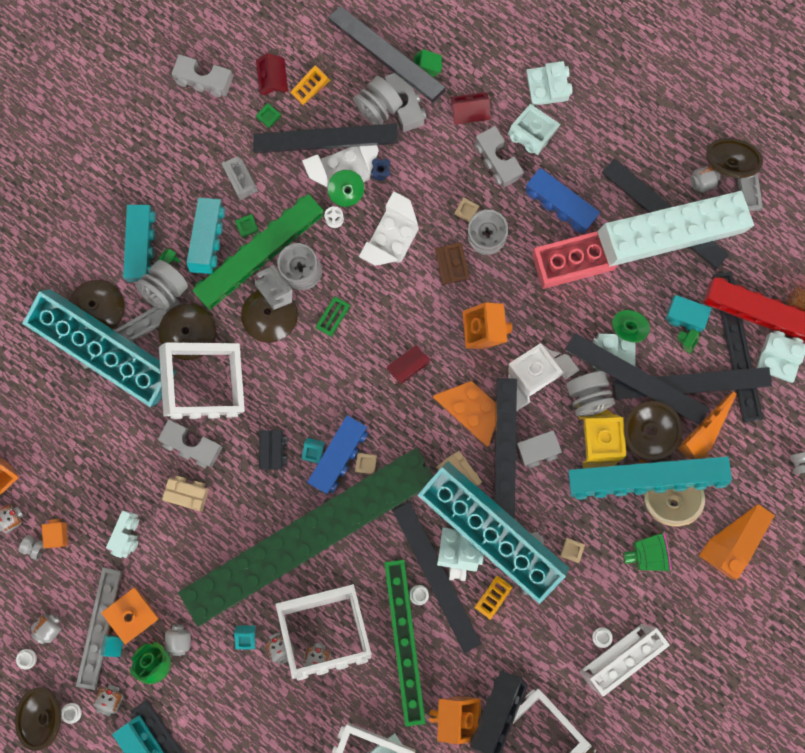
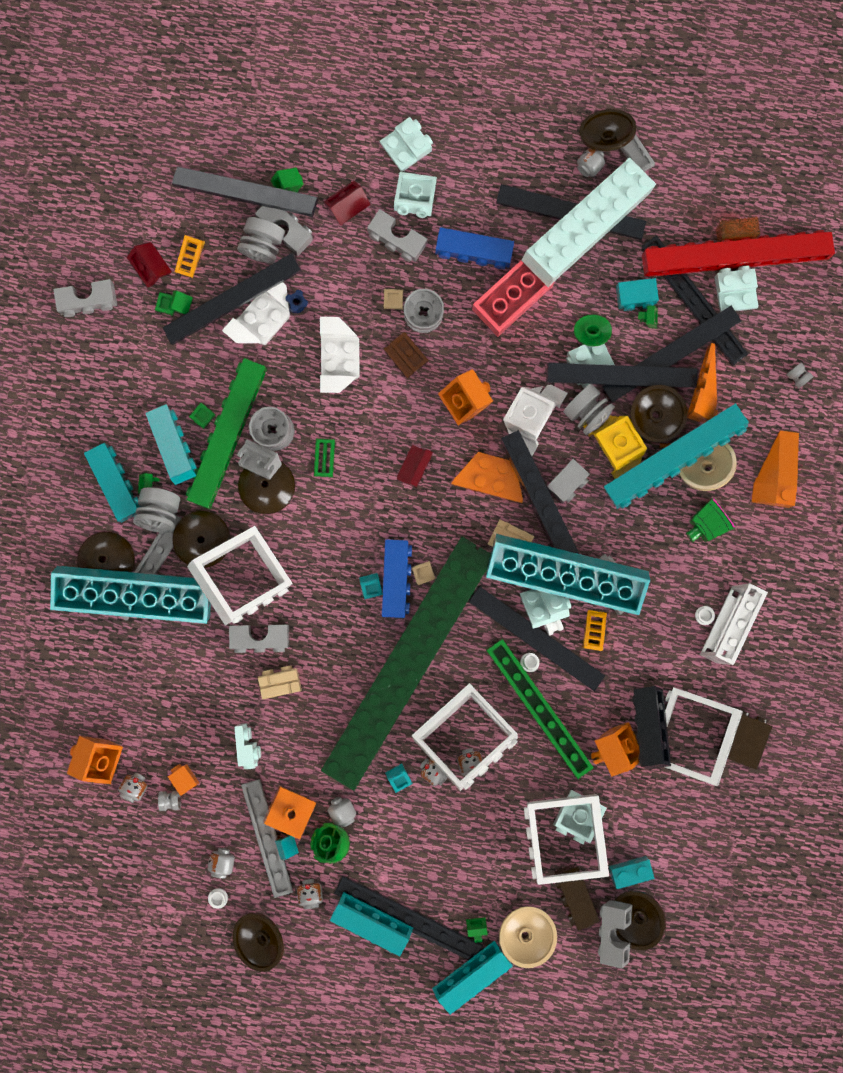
camera: 35 degrees left, 5 degrees up
(71, 713) = (283, 922): white plate -> none
(239, 177) = (172, 375): light grey hinge -> none
(272, 450) = (335, 605): black brick -> none
(280, 120) = (180, 302): none -> green tile
(332, 214) = (275, 364): white wheel -> none
(338, 183) = (266, 332): green dish -> none
(572, 550) = (641, 554): tan tile -> none

